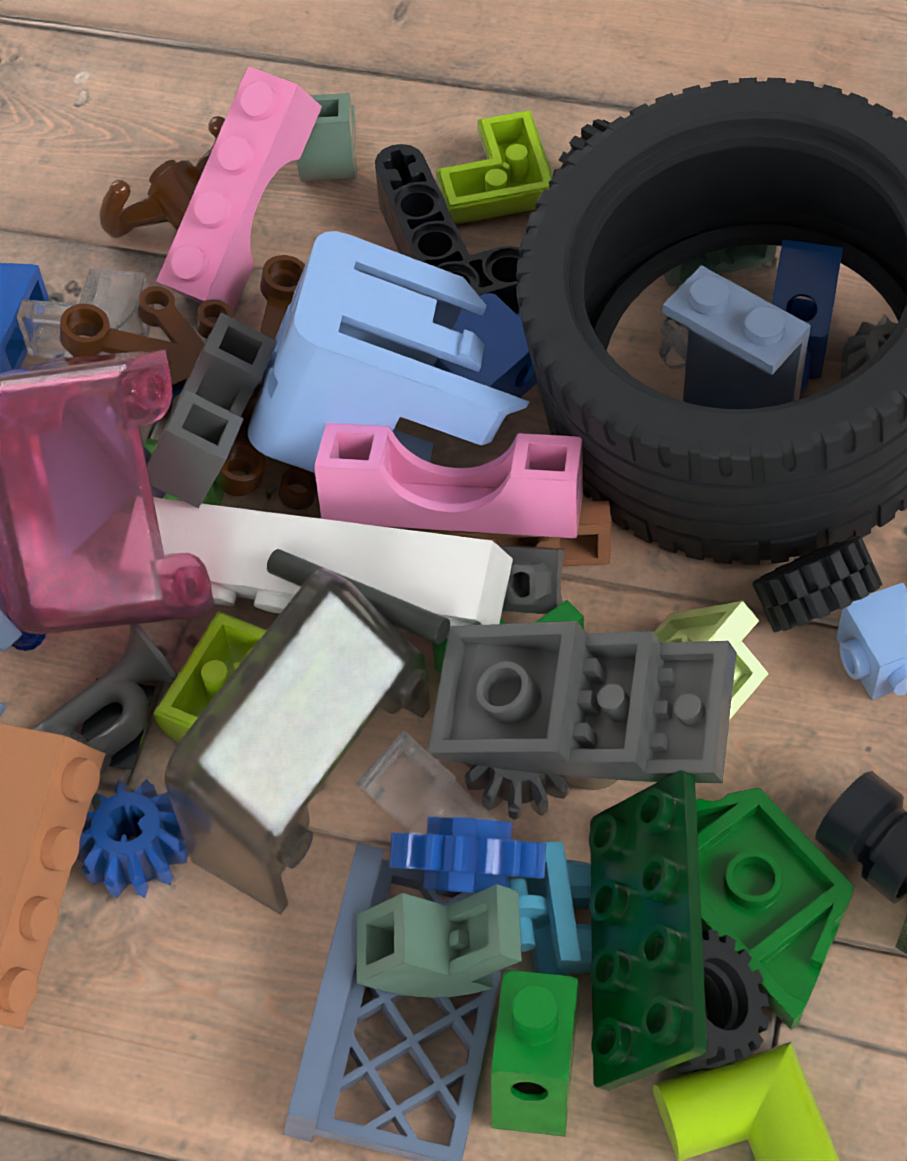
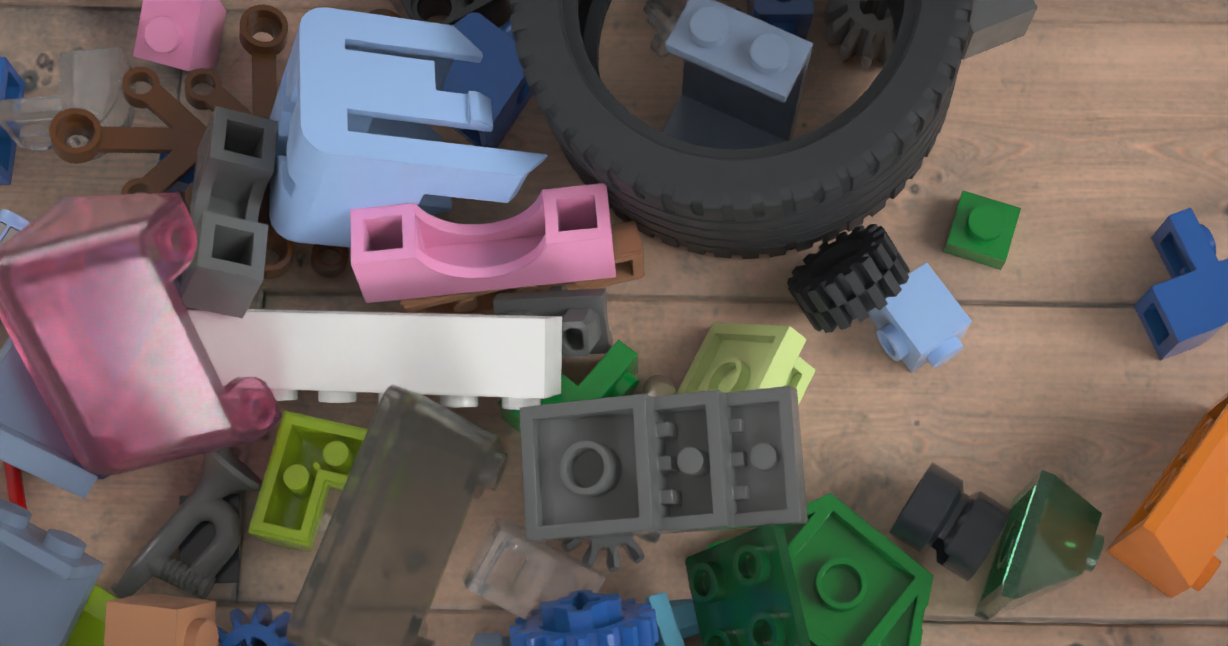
camera: 15 degrees left, 15 degrees up
(397, 611) = (460, 401): pearl dark grey bar -> none

